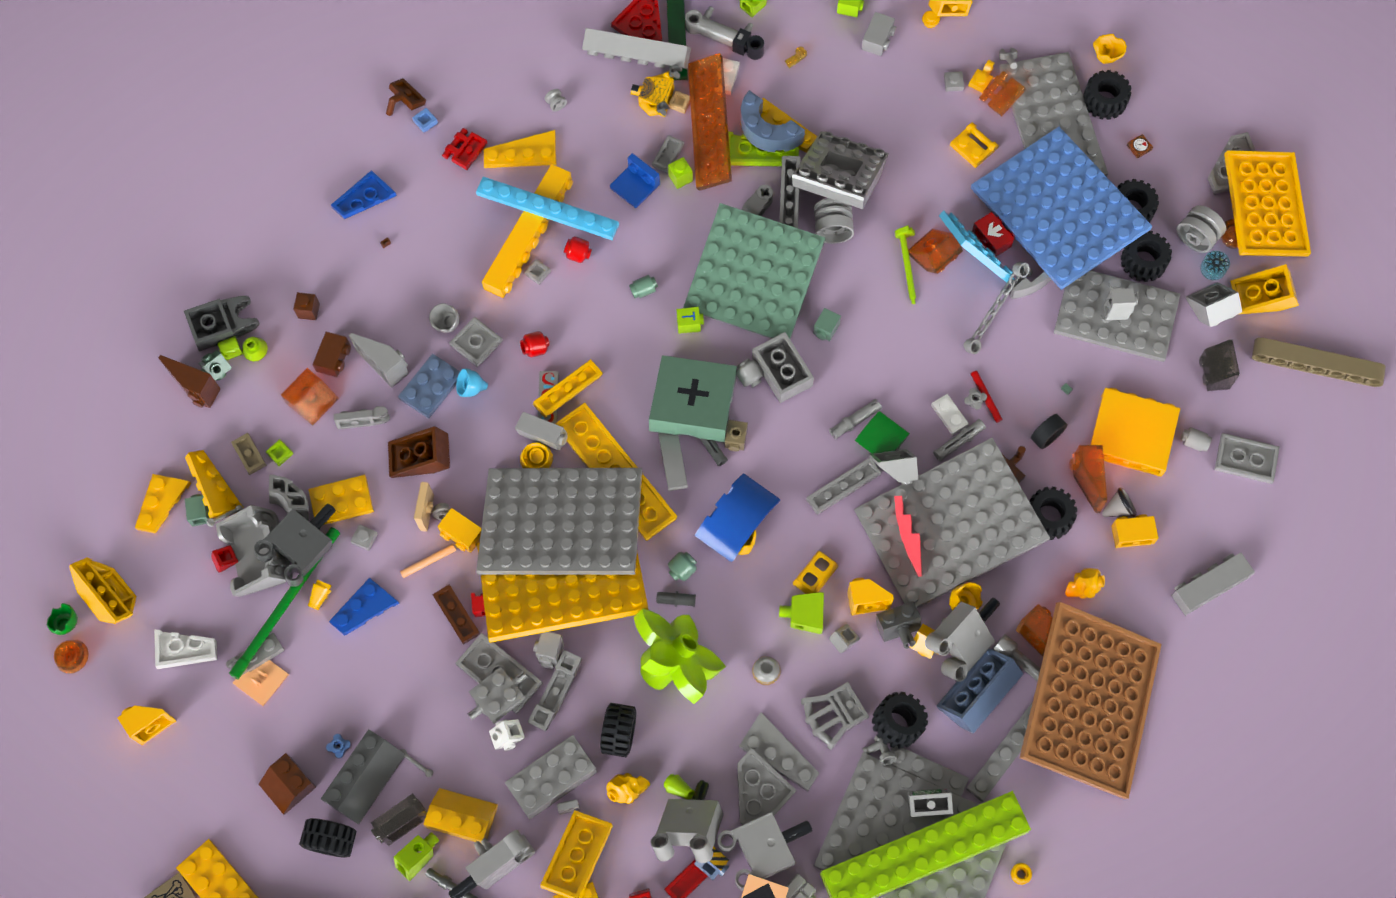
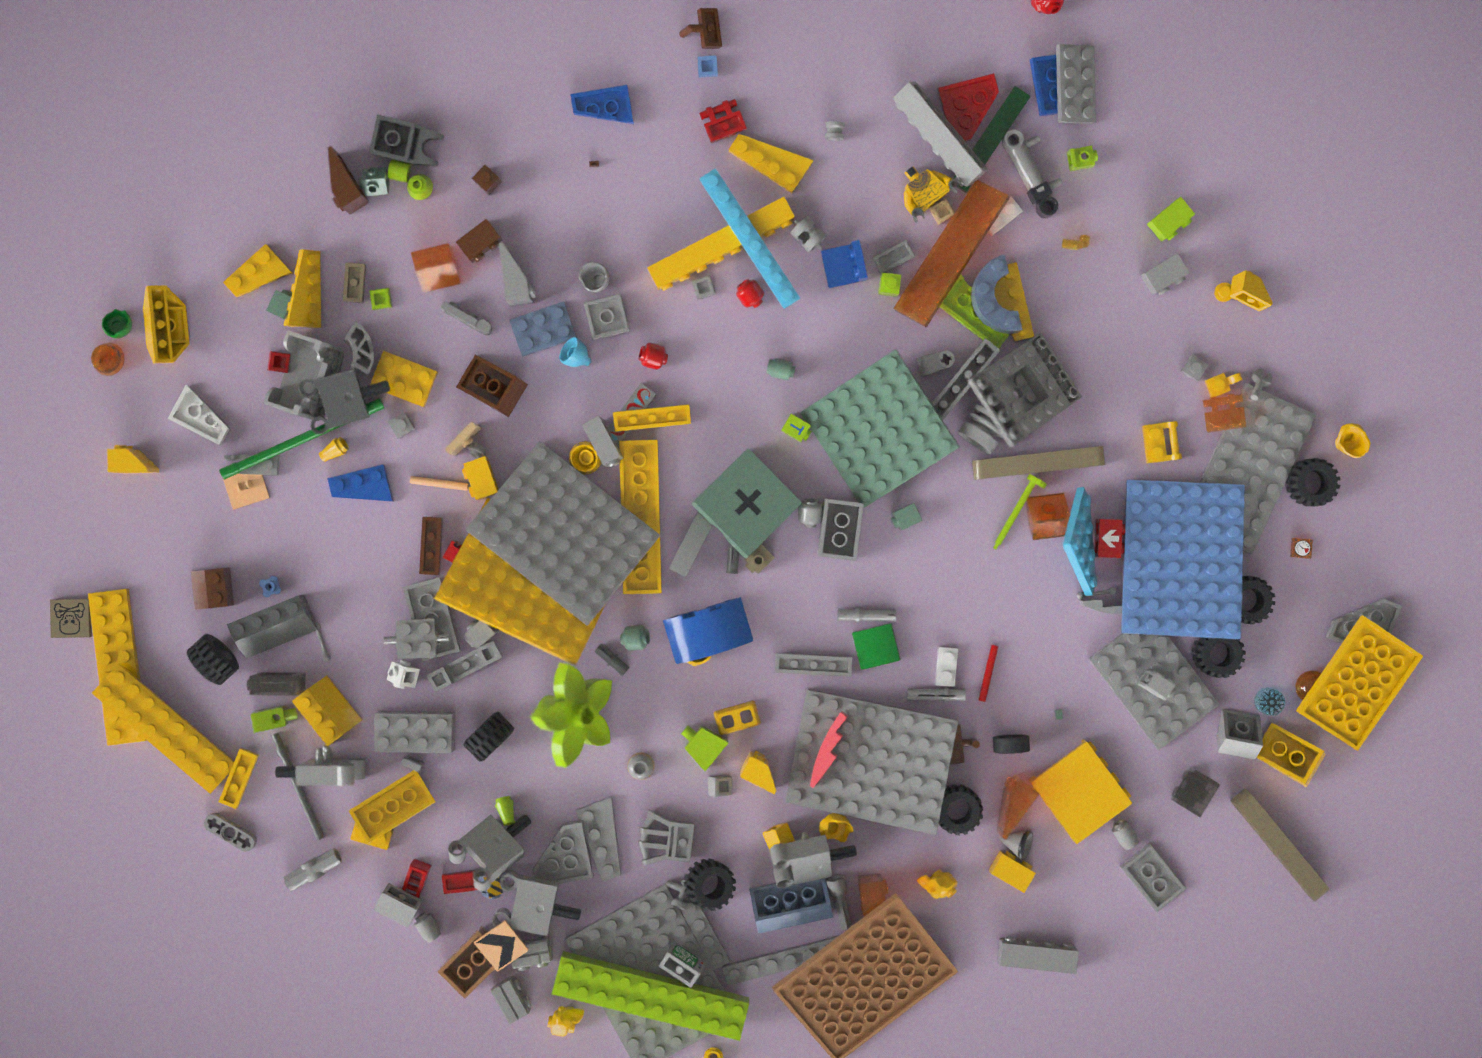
camera: 35 degrees right, 20 degrees up
(210, 522) = (282, 329): light grey hinge -> none
(590, 179) = (808, 234): none -> light grey wheel
(626, 788) = (465, 781): yellow head -> none
(894, 219) = (1038, 462): none -> dark tan beam
(898, 464) = (865, 683): slope -> none
(899, 623) = (769, 809): dark grey brick -> none
(973, 345) = (1101, 590): light grey piece -> none
(977, 404) = (982, 671): light grey plate -> none
(1201, 229) = (1283, 665): light grey wheel -> none

